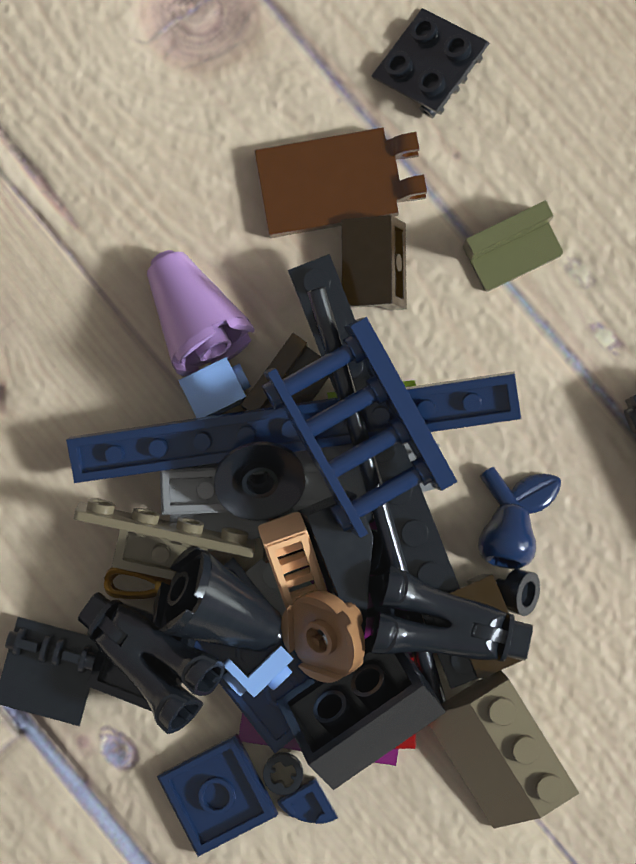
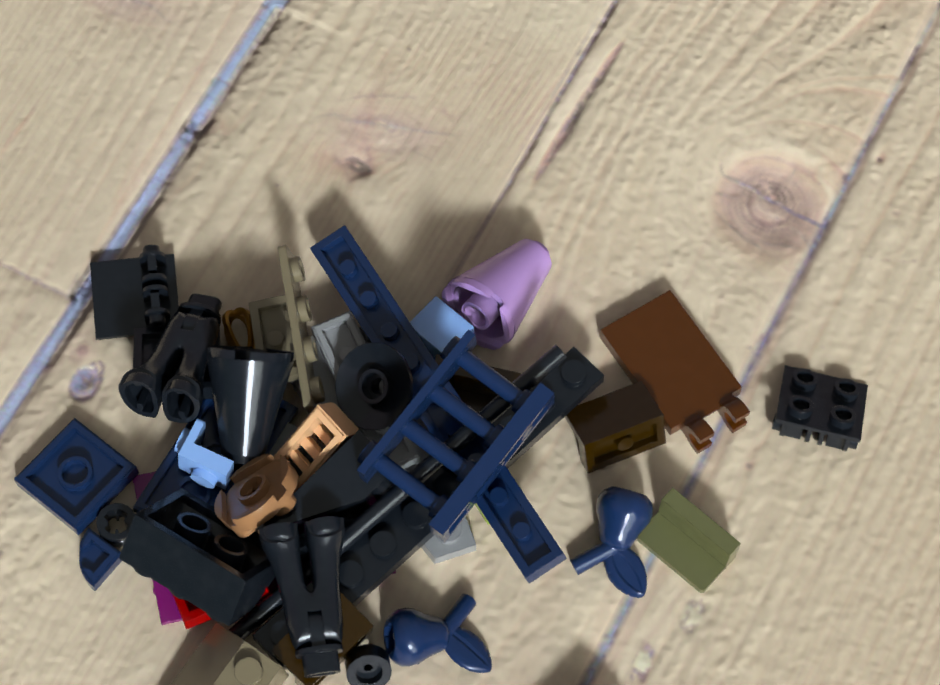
camera: 60 degrees right, 20 degrees down
(470, 298) = (621, 519): none -> dark blue piece

